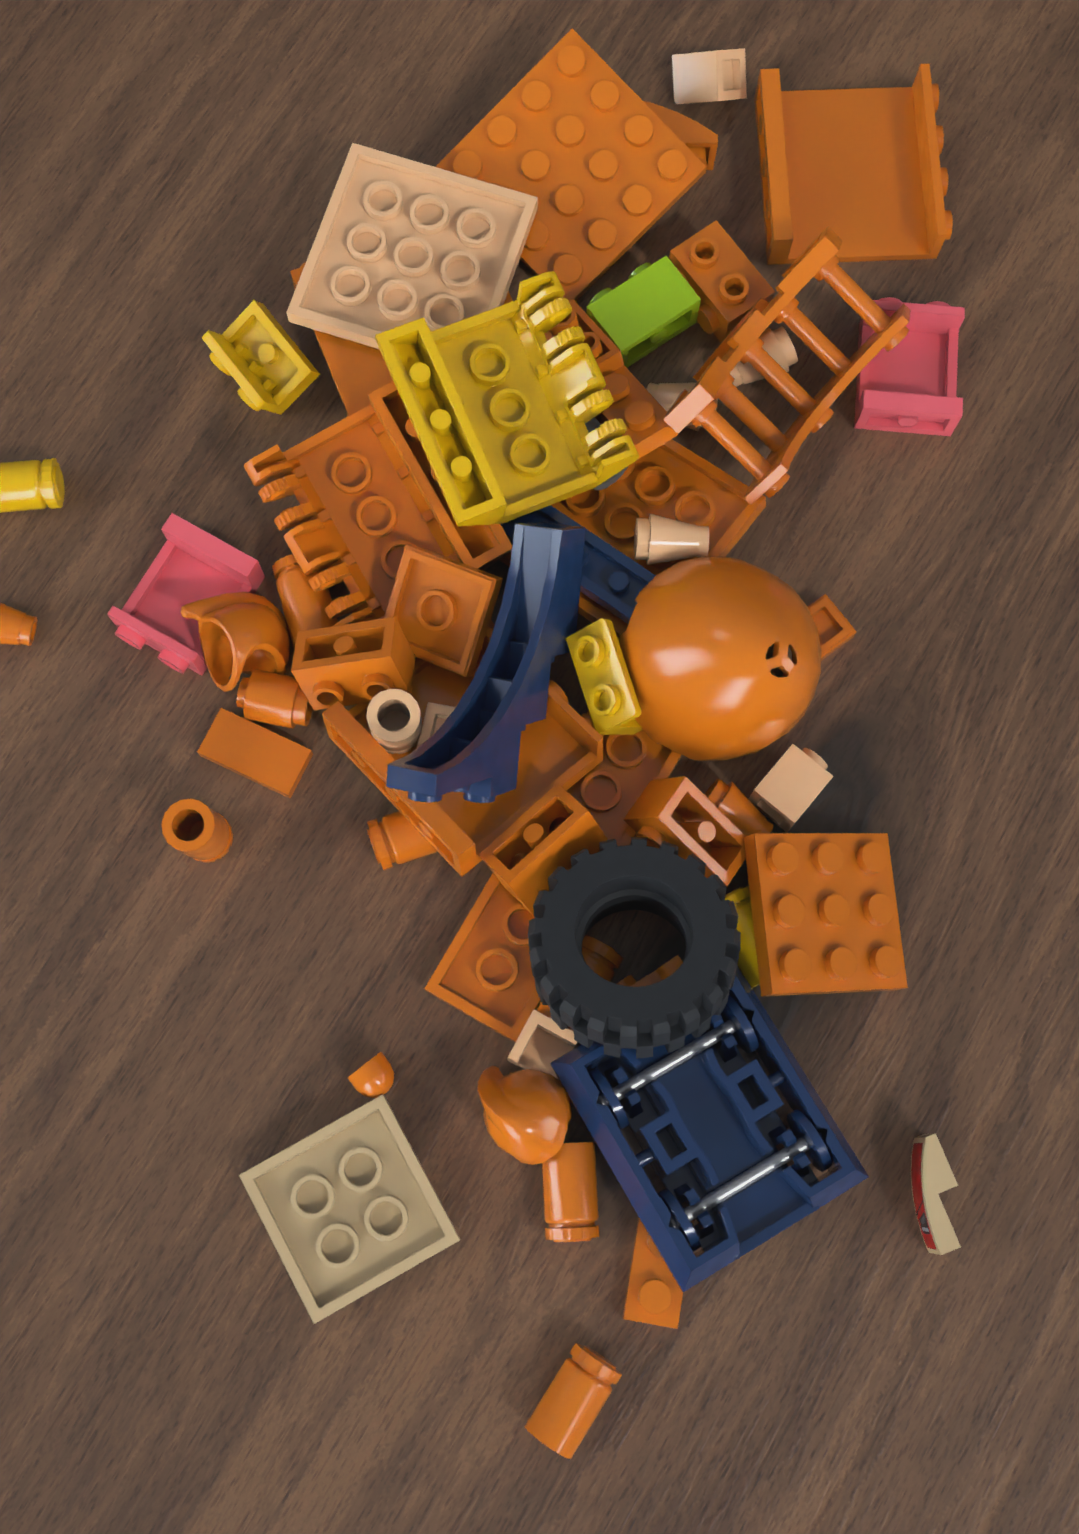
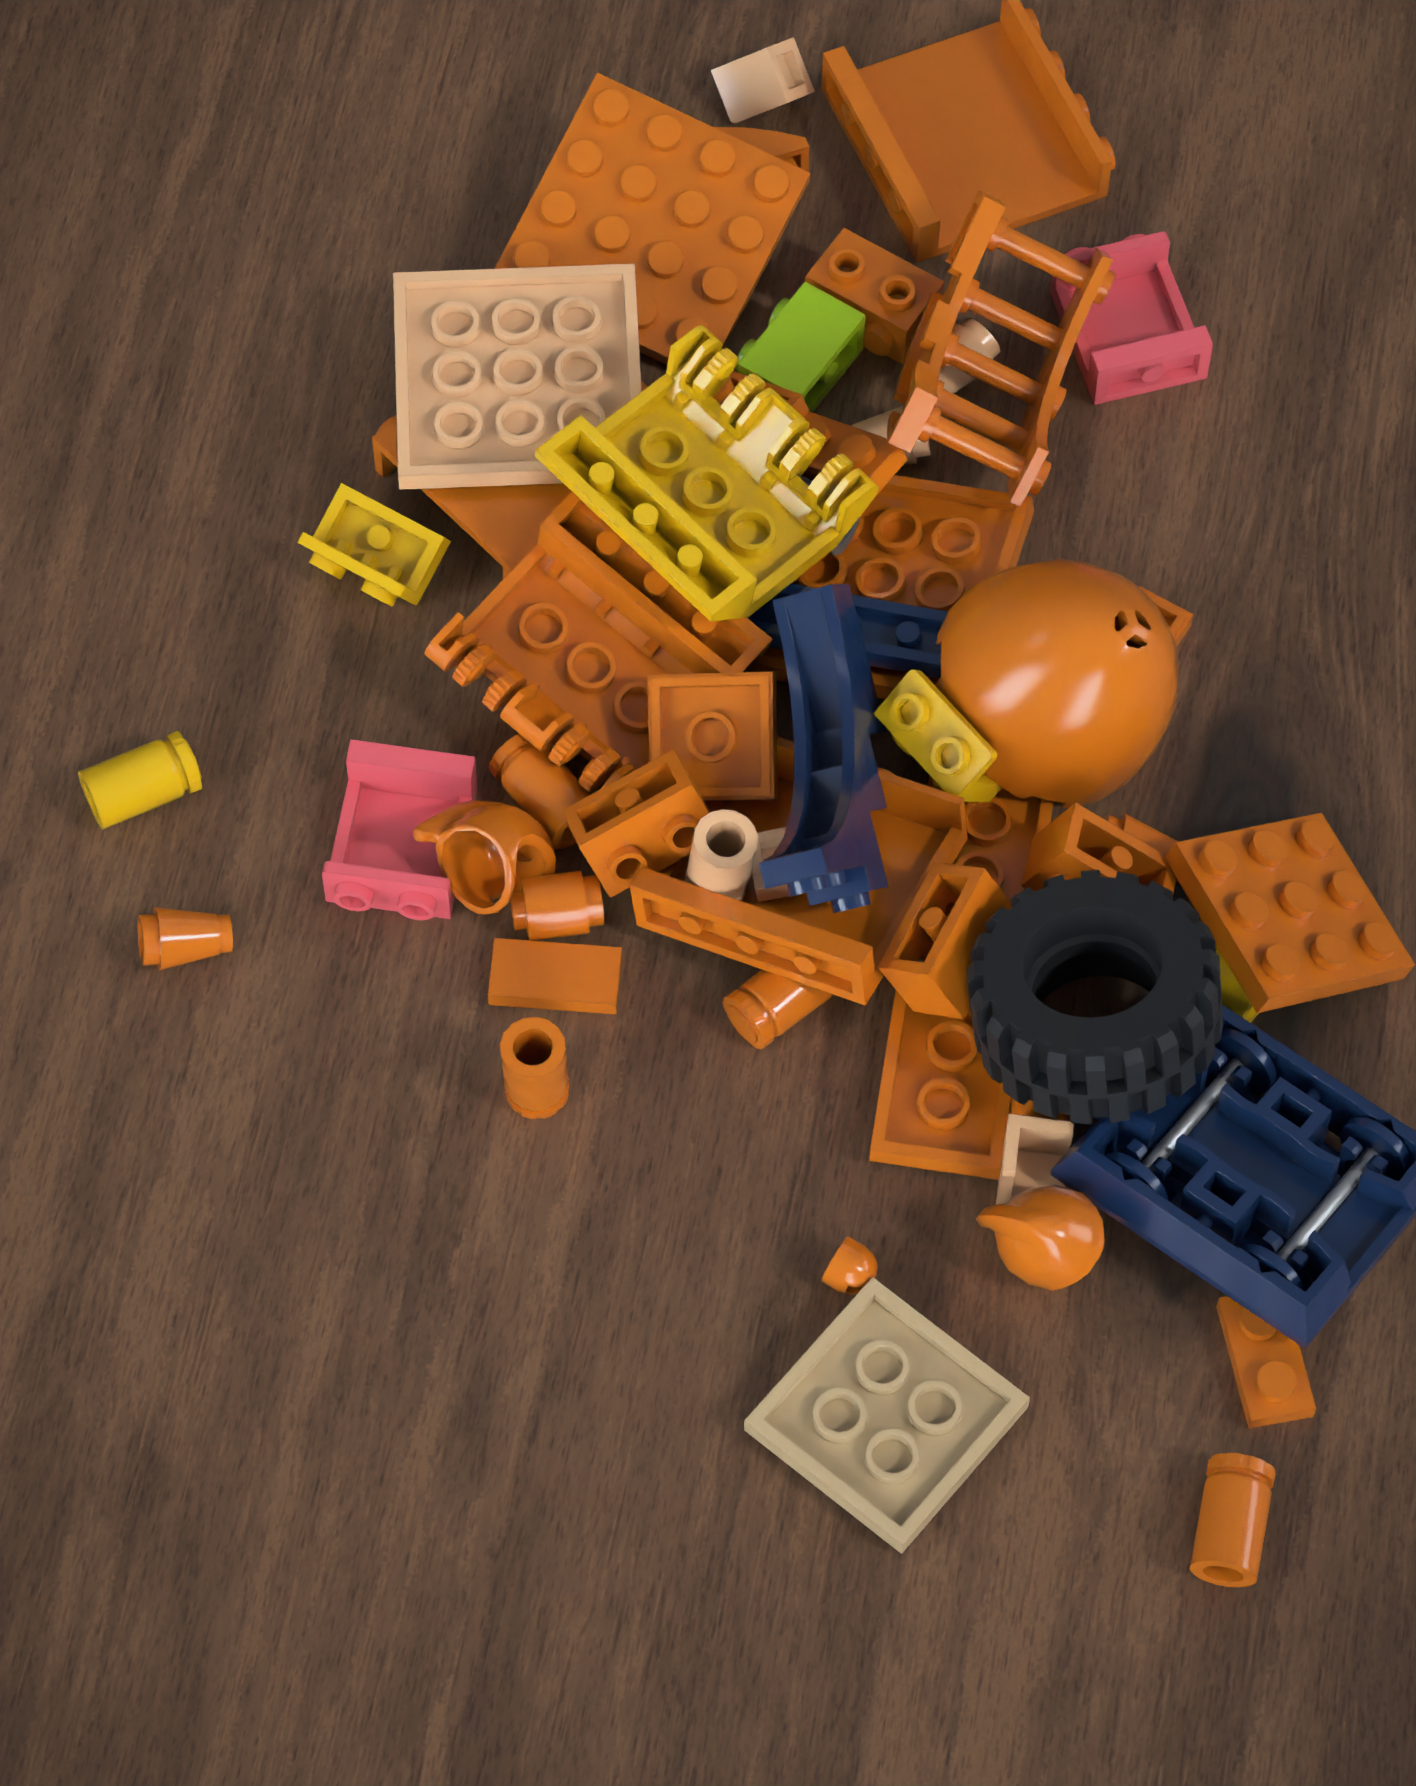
camera: 20 degrees left, 15 degrees down
(571, 1193) = (1133, 1306): orange piece -> none
(668, 540) = (941, 574): light nougat cone -> none
(791, 786) = (1192, 794): light nougat brick -> none

